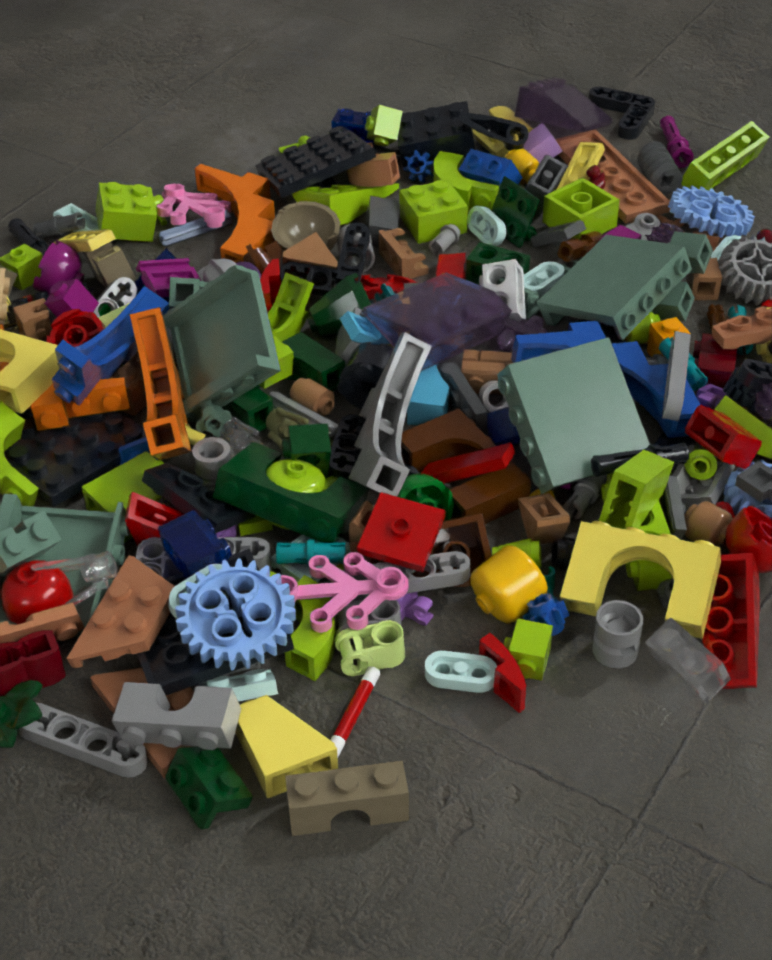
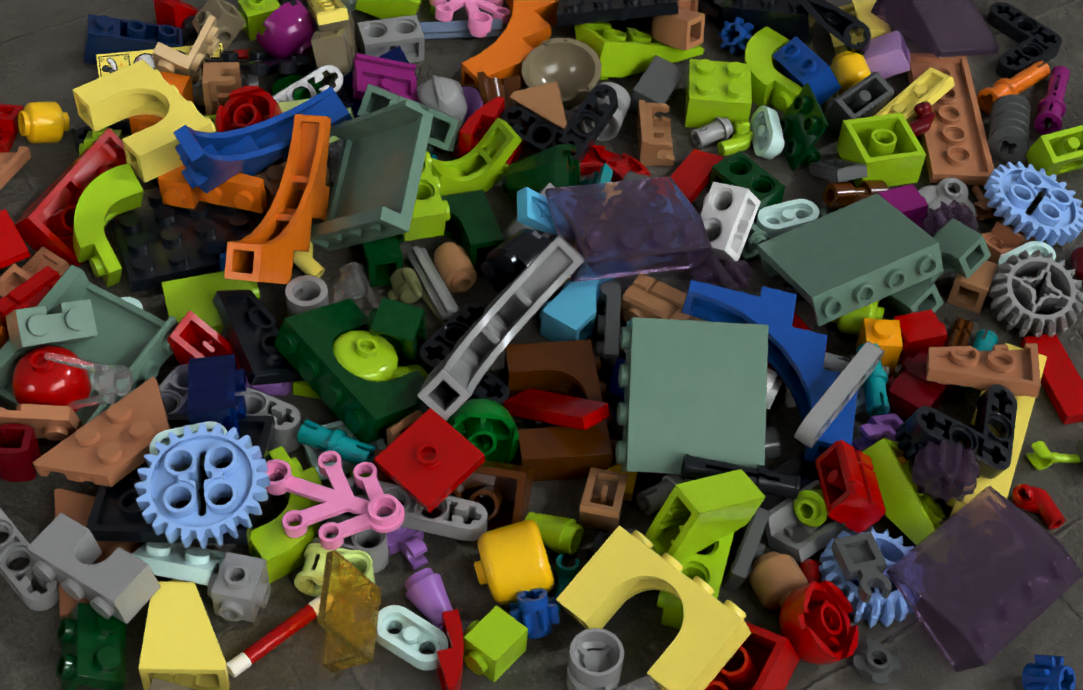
camera: 20 degrees right, 5 degrees up
(69, 296) = (264, 71): magenta brick -> none
(148, 246) = (384, 35): none -> light grey brick
(209, 413) = (335, 255): sand green plate -> none
(303, 686) = (239, 587): none -> light grey brick
(407, 674) = (348, 614): none -> clear yellow bracket
(454, 636) = (428, 595): none -> medium lavender cone
(468, 238) = (740, 139): none -> lime arm
(642, 138) = (1013, 85): none -> orange pin
(696, 321) = (920, 332): none -> red brick

